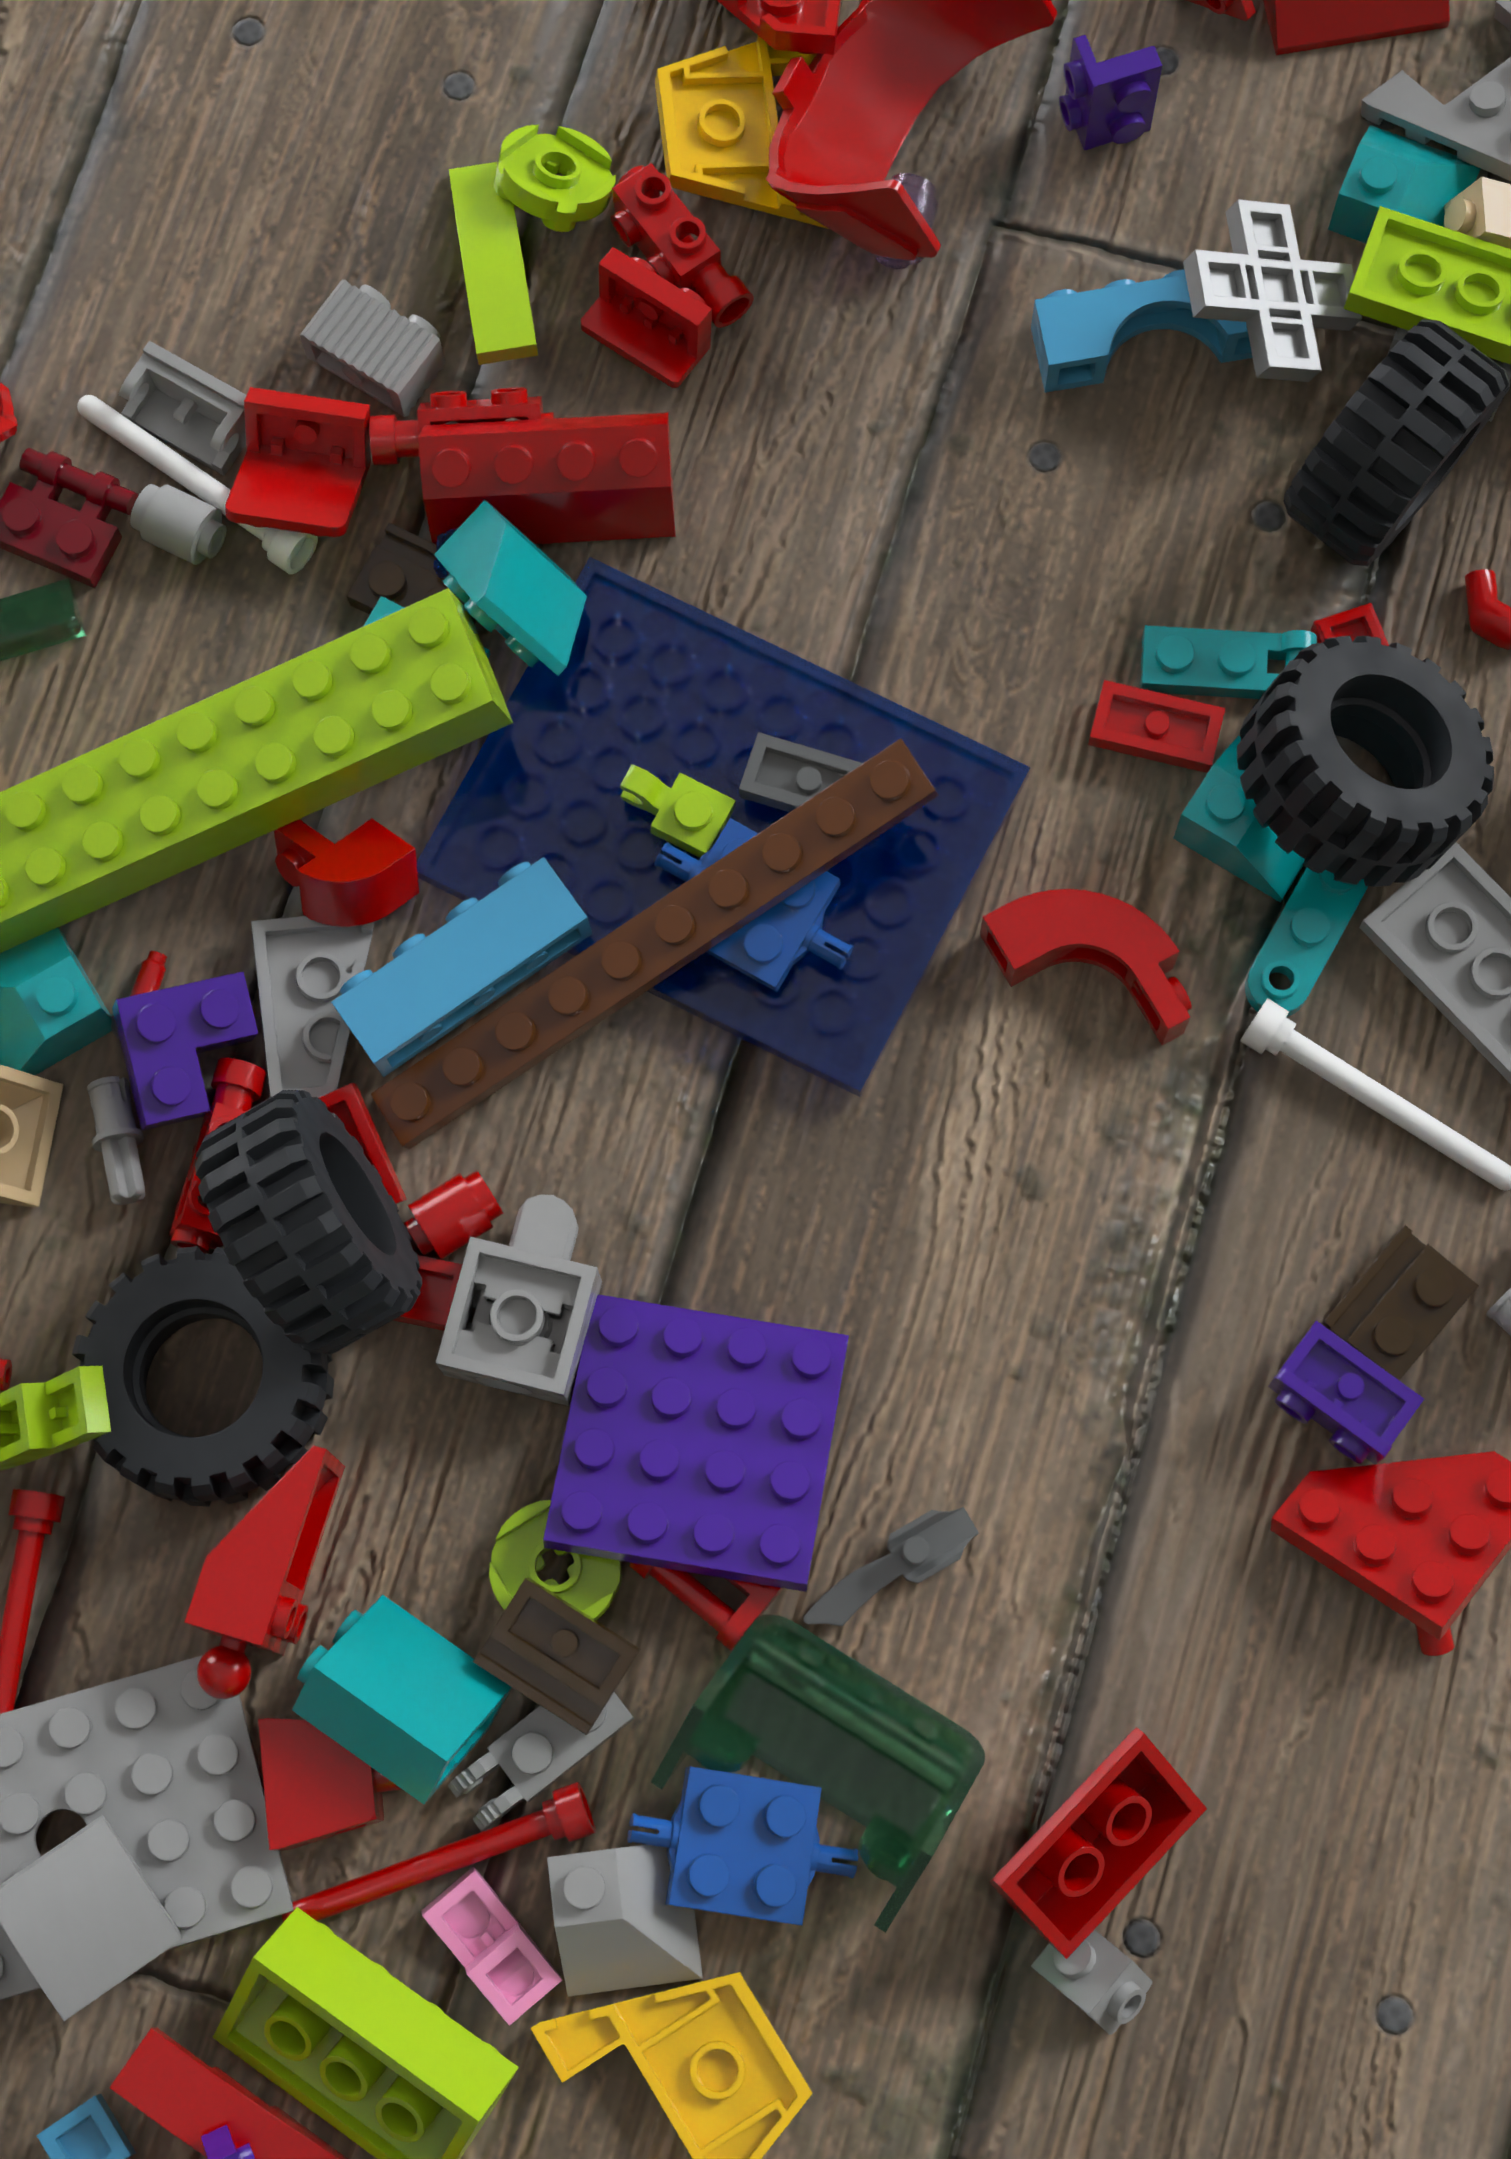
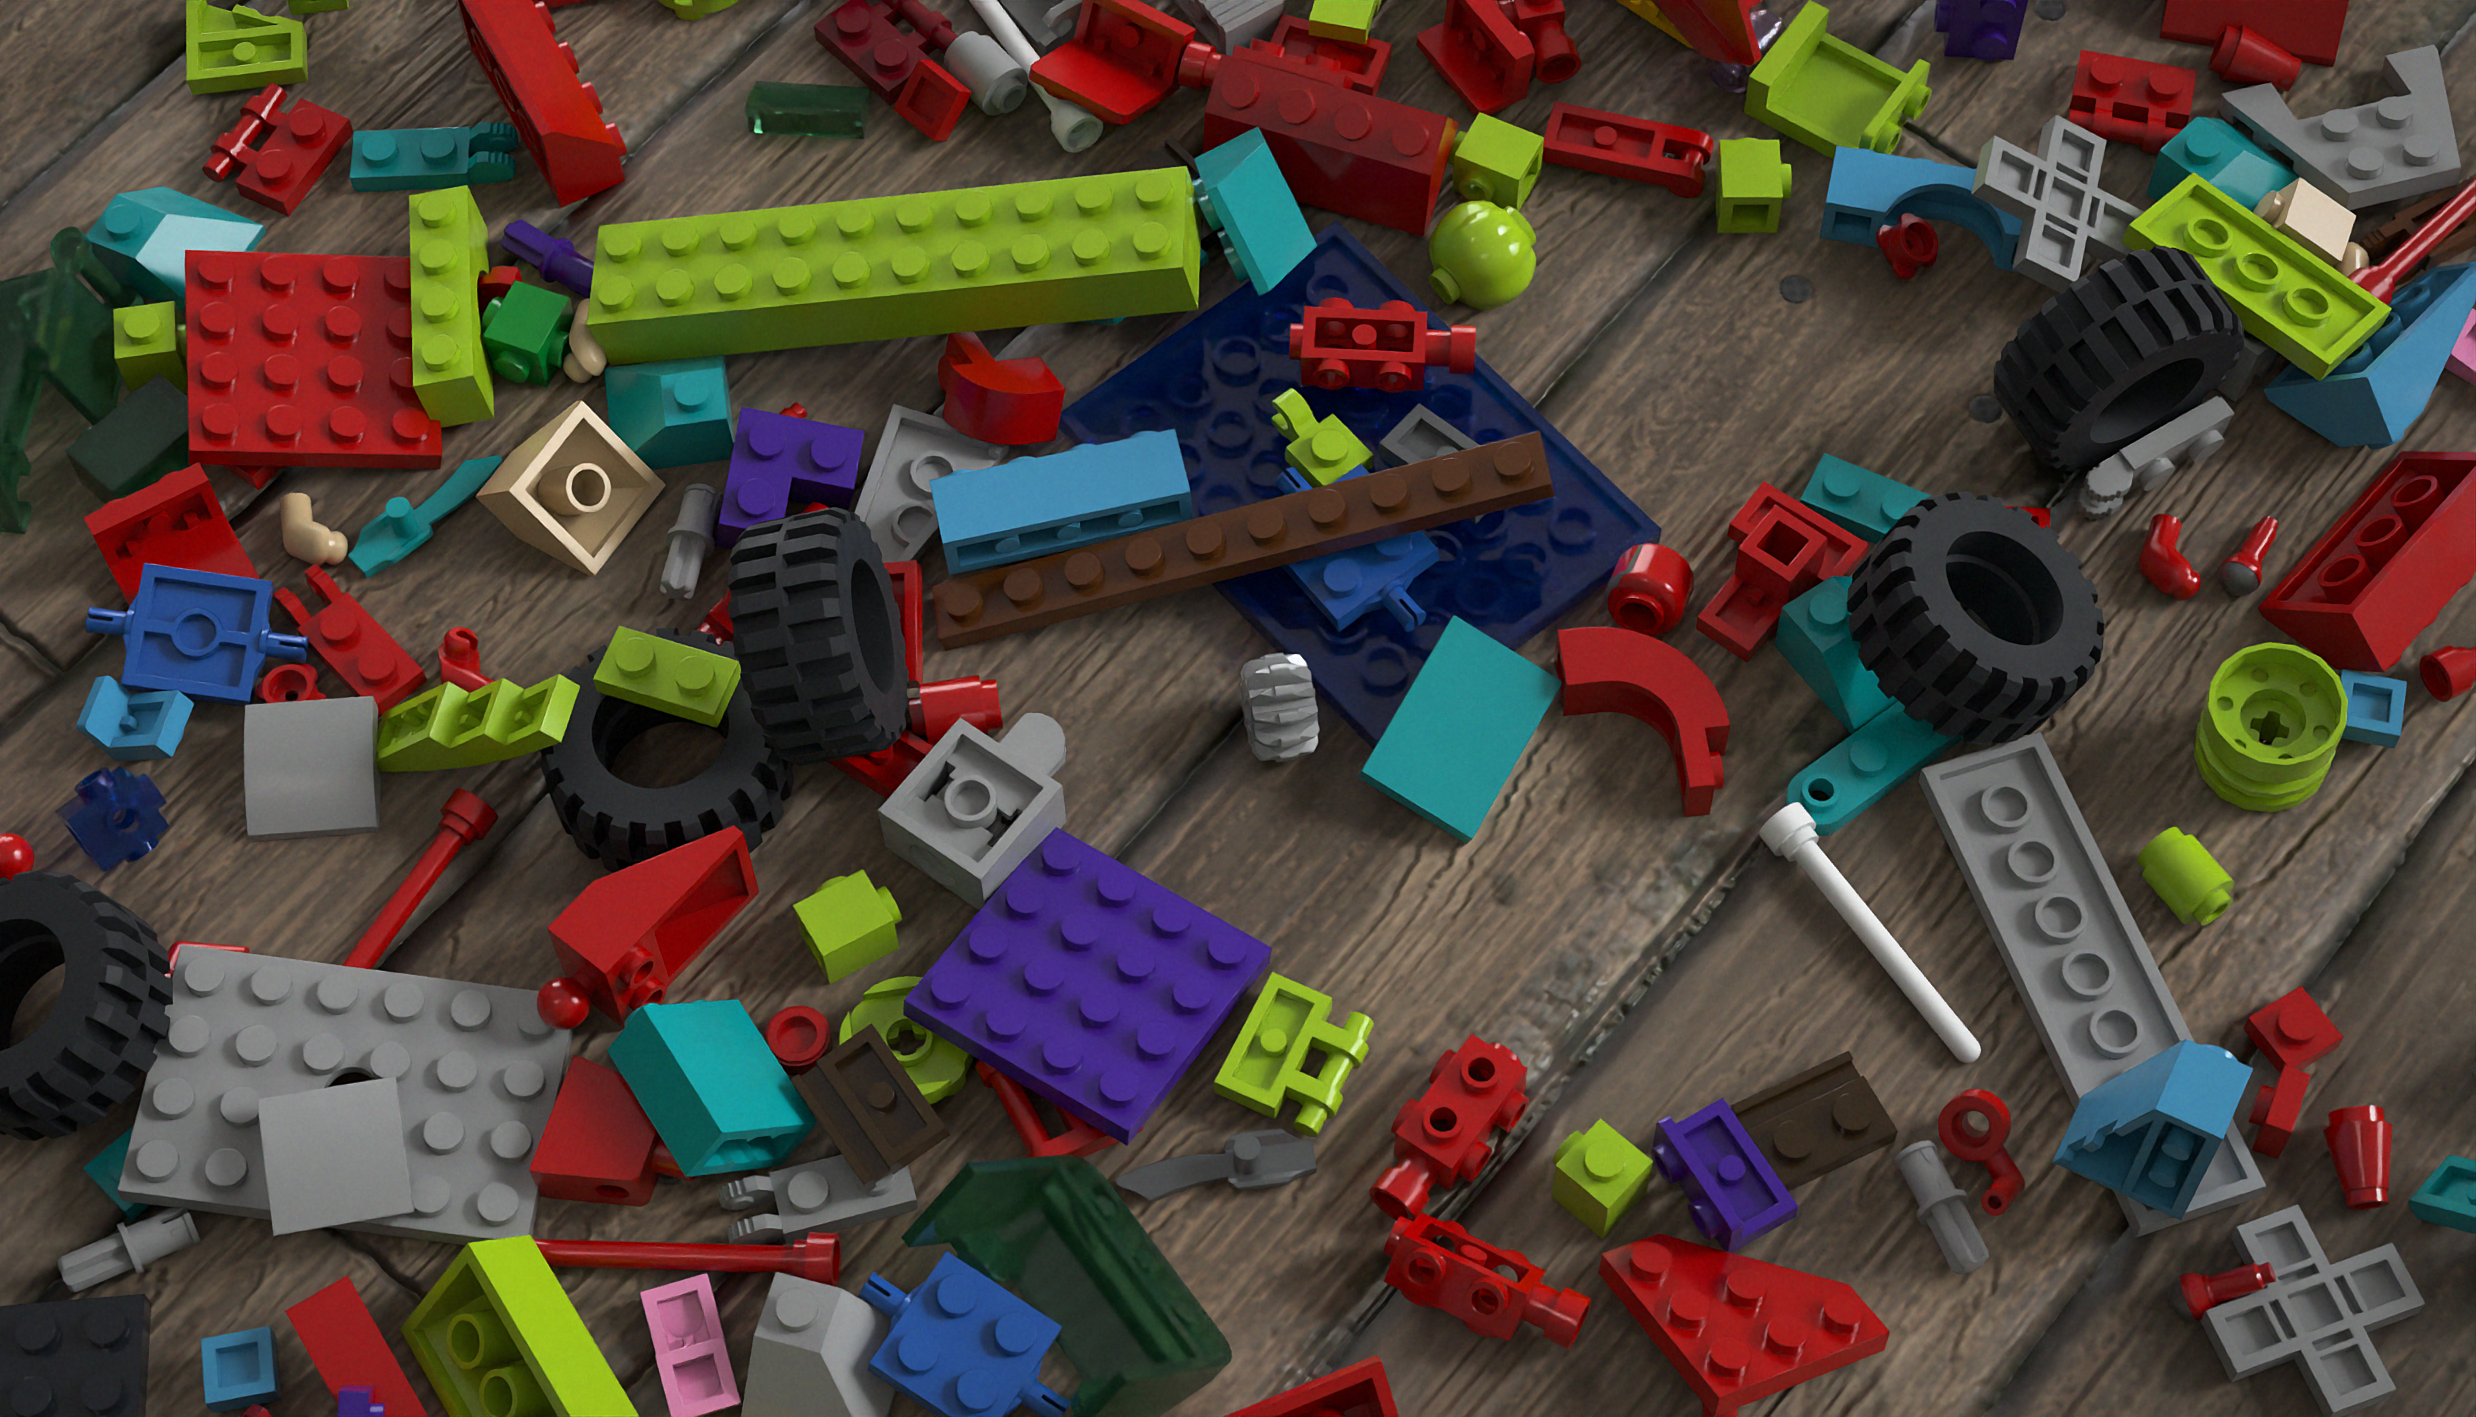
camera: 20 degrees right, 15 degrees down
(139, 573) = (932, 100): none -> red plate
(178, 1315) = (667, 676): none -> lime plate
(448, 1472) = (848, 924): none -> lime brick
(451, 1602) = (798, 1038): none -> red tile
(539, 374) = (1358, 61): none -> red plate
(678, 685) = (1376, 347): none -> red brick
(714, 435) = (1496, 162): none -> lime brick
(742, 540) = (1482, 255): none -> lime plant
(757, 1096) = (1279, 707): none -> light grey gear
(830, 369) = (1627, 148): none -> red plate
(893, 1431) = (1274, 1046): none -> lime plate
(930, 1048) = (1460, 729): none -> teal tile
(964, 366) = (1750, 185): none -> lime brick
(1004, 234) = (1833, 91): none -> lime panel
(1043, 834) = (1649, 589): none -> red head
(1090, 1425) = (1471, 1115): none -> red brick
(1136, 374) = (1908, 245): none -> red plate
(1150, 793) = (1770, 571): none -> red brick
(1166, 1596) = (1471, 1285): none -> red brick
(1239, 1443) = (1599, 1177): none -> lime brick
(1279, 125) = (2135, 91): none -> red plate
(1376, 52) = (2252, 60): none -> red cone
(1446, 518) = (2153, 458): none -> light grey hinge

